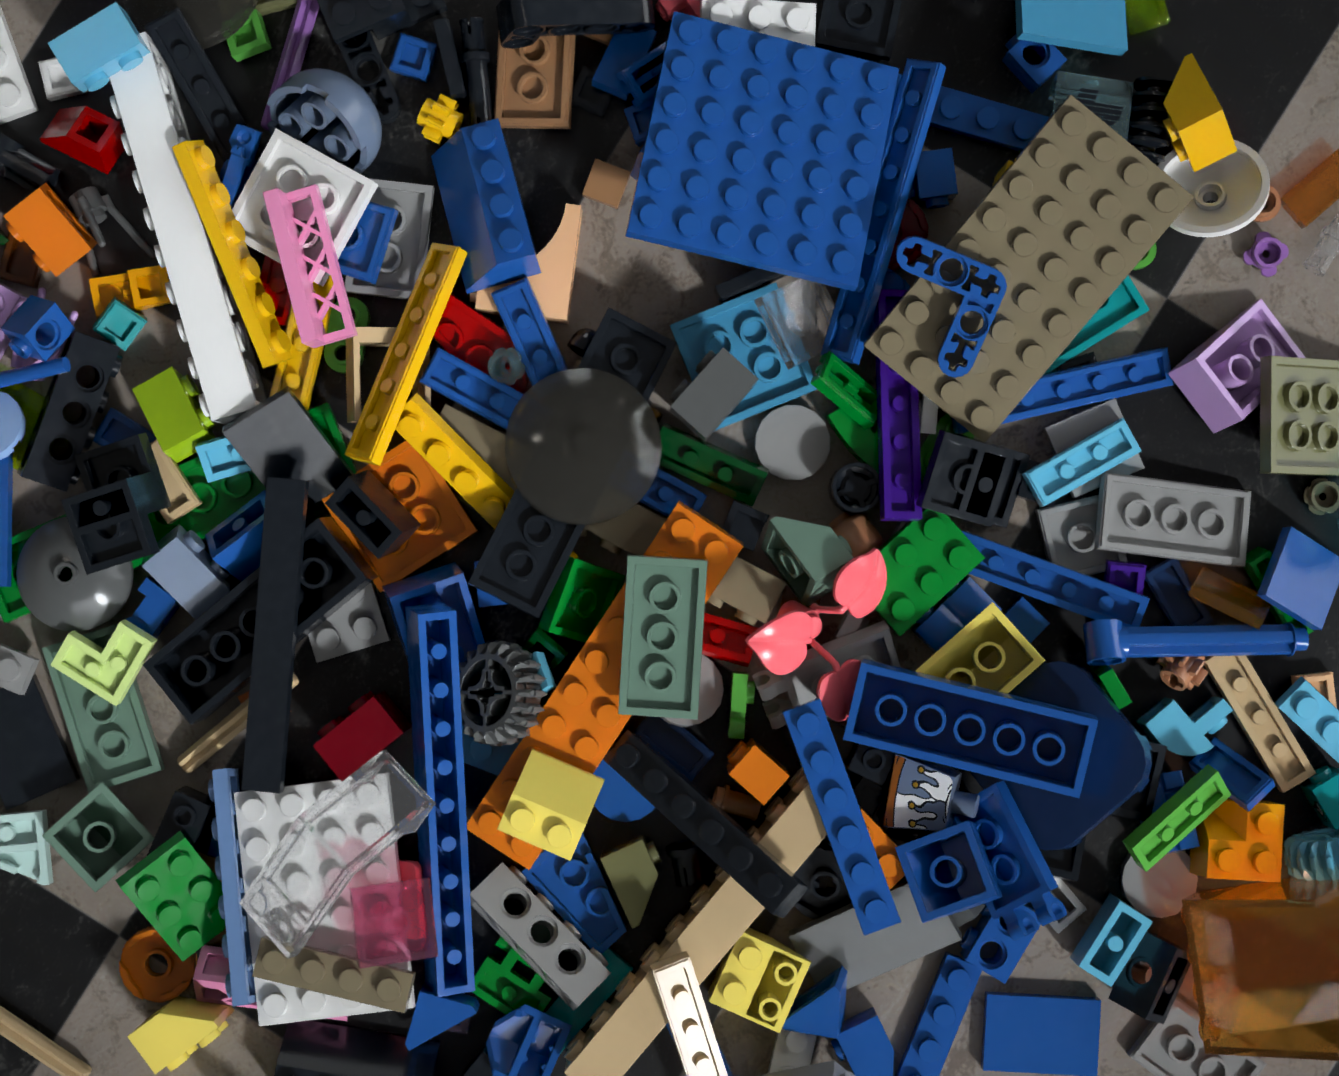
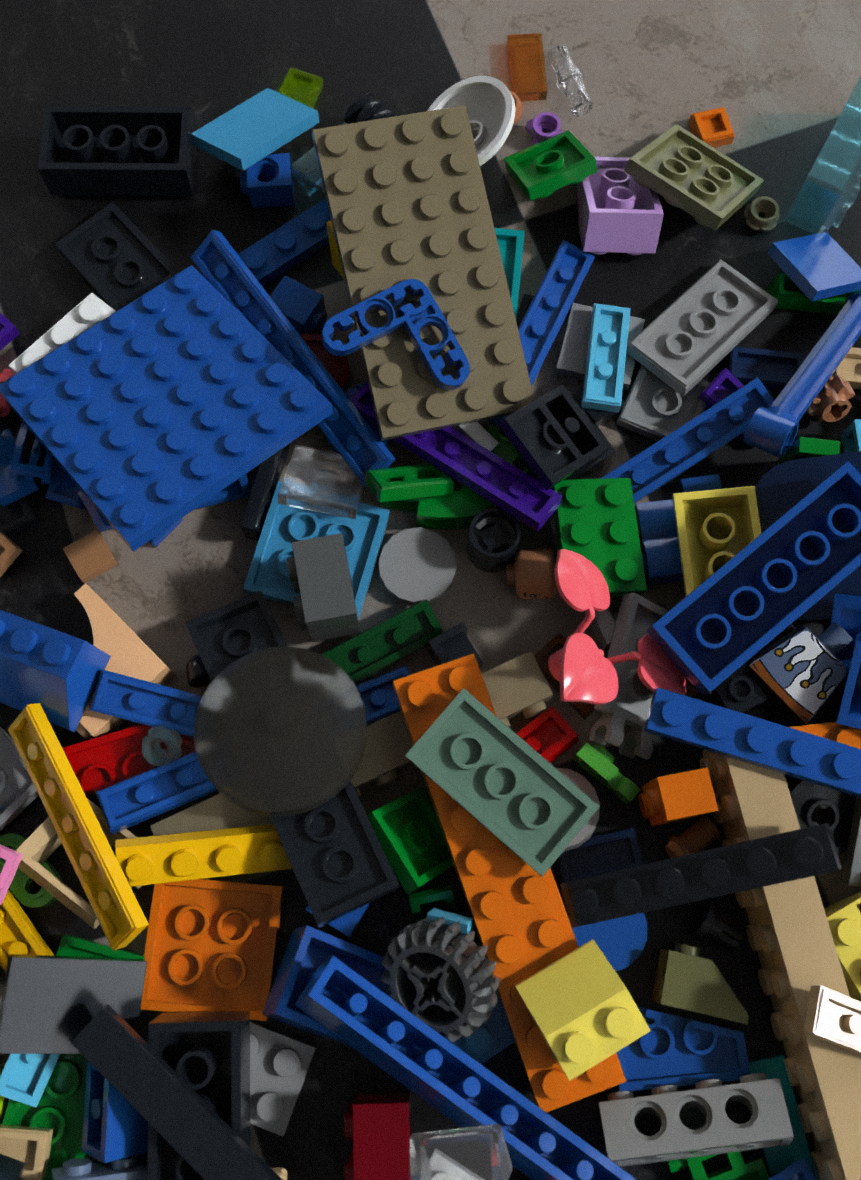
camera: 55 degrees left, 15 degrees down
(372, 513) = (188, 969): black brick -> none
(806, 556) = (520, 616): sand green slope -> none
(1196, 118) = (405, 84): yellow slope -> none
(1227, 286) = (550, 165): none -> green plate
(1229, 597) = (797, 325): clear orange tile -> none

